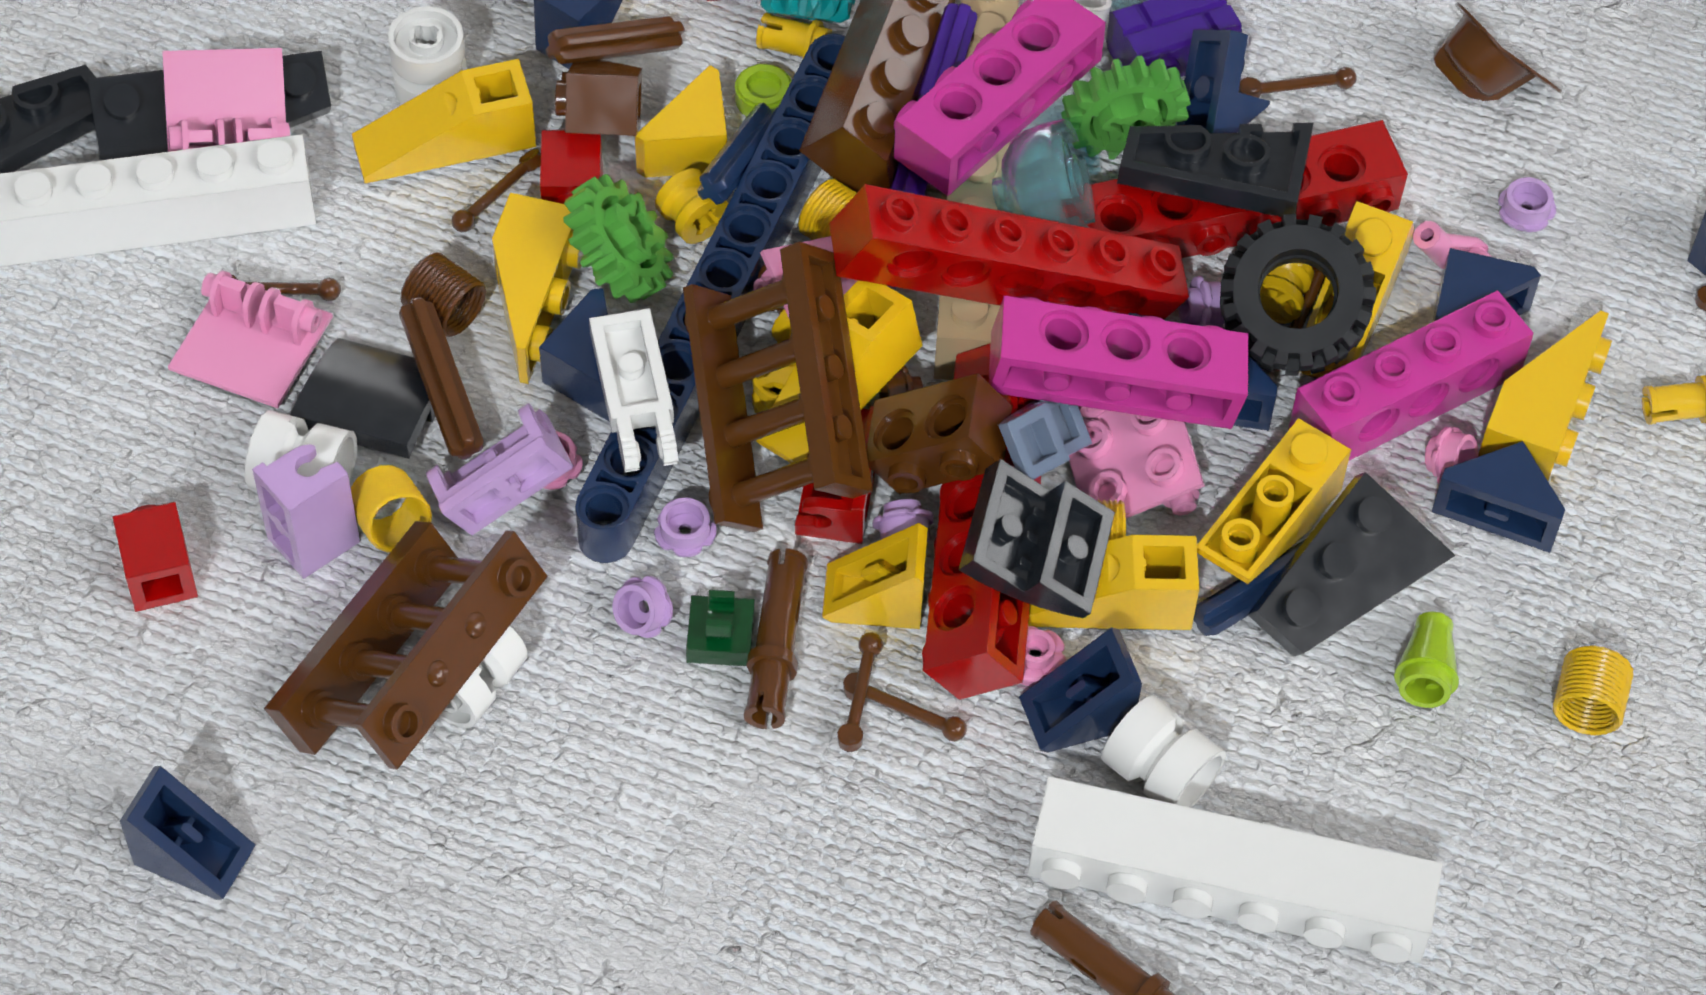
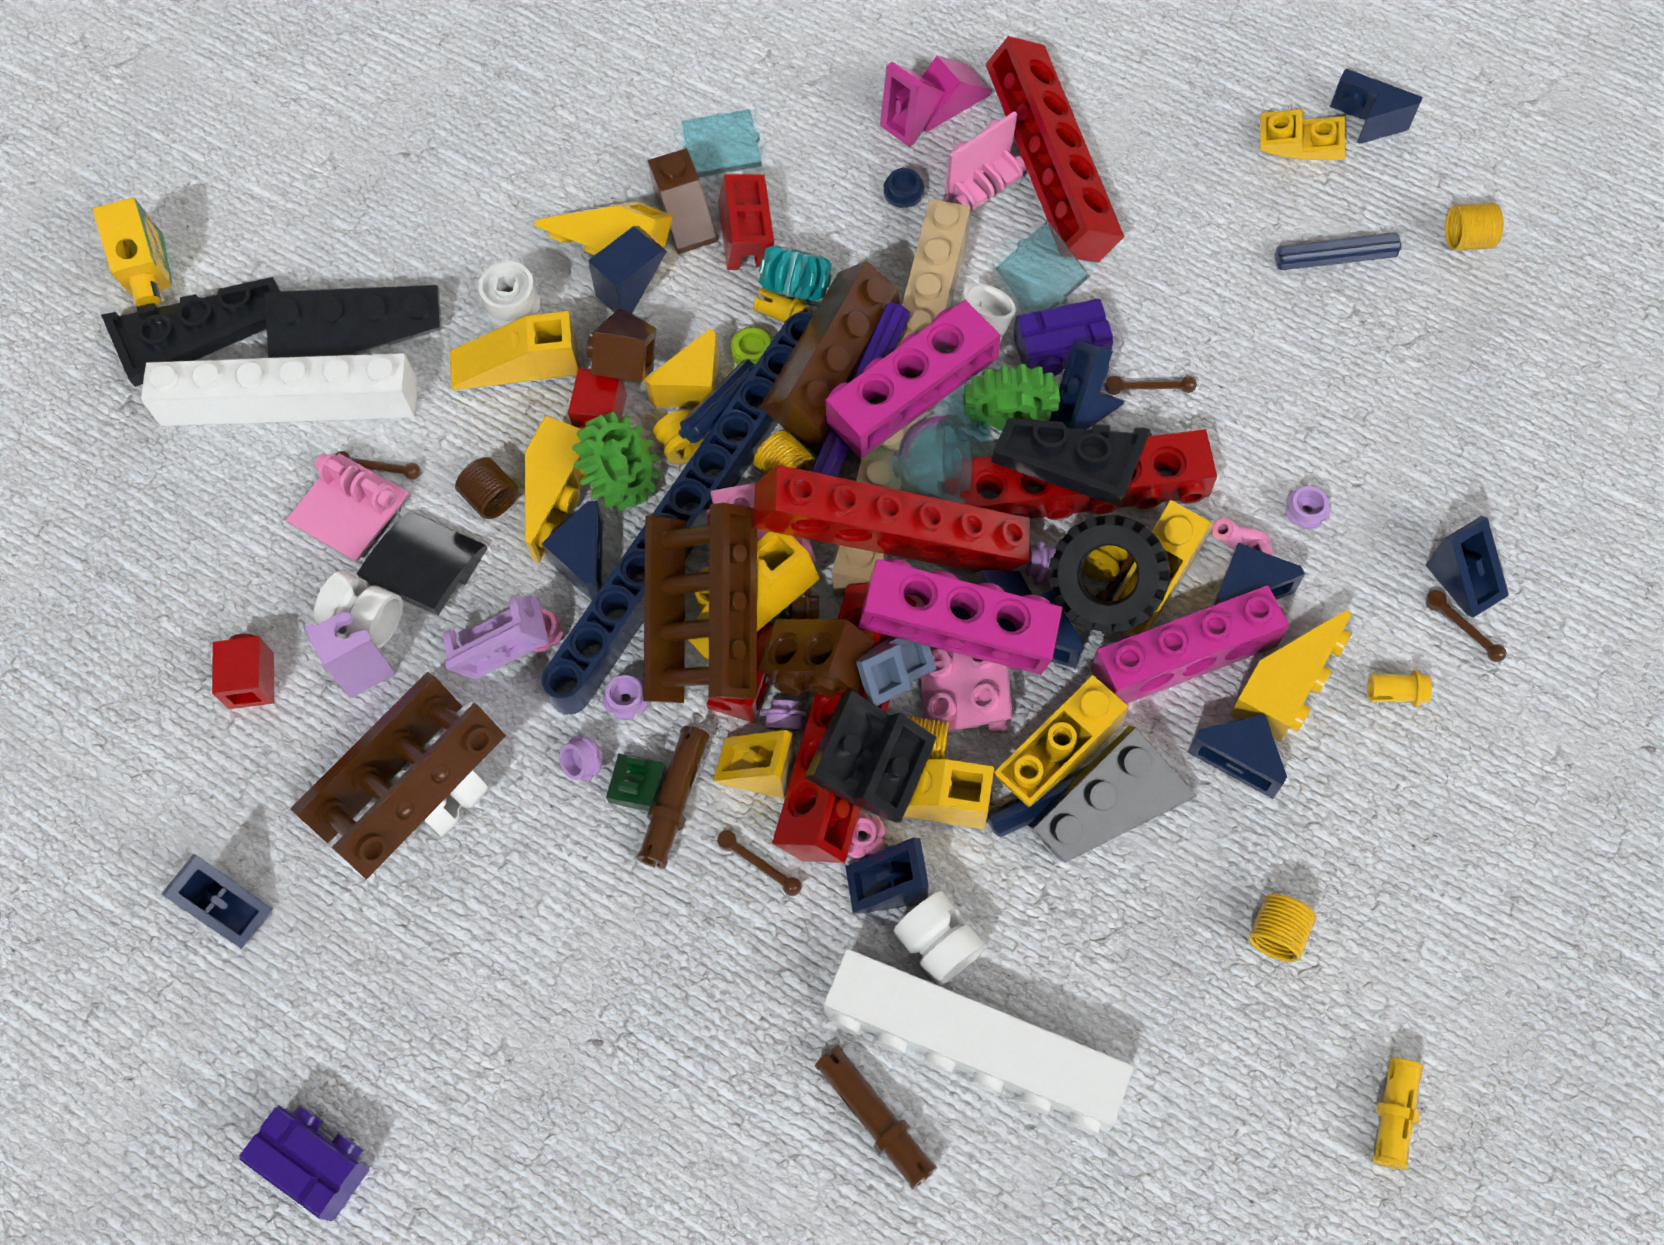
camera: 15 degrees right, 10 degrees up
(223, 96) = (356, 318): bright pink hinge -> none
(377, 488) = (410, 642): yellow piece -> none
(441, 378) = (468, 559): reddish brown axle -> none
(464, 219) = (517, 427): reddish brown hinge -> none
(614, 40) = (645, 300): reddish brown axle -> none
(634, 383) = (599, 585): white hinge -> none
(850, 734) = (712, 883): reddish brown hinge -> none
(1428, 665) = (1158, 887): lime cone -> none
(1449, 449) = (1209, 710): bright pink plate -> none
(1479, 63) = (1294, 387): reddish brown piece -> none

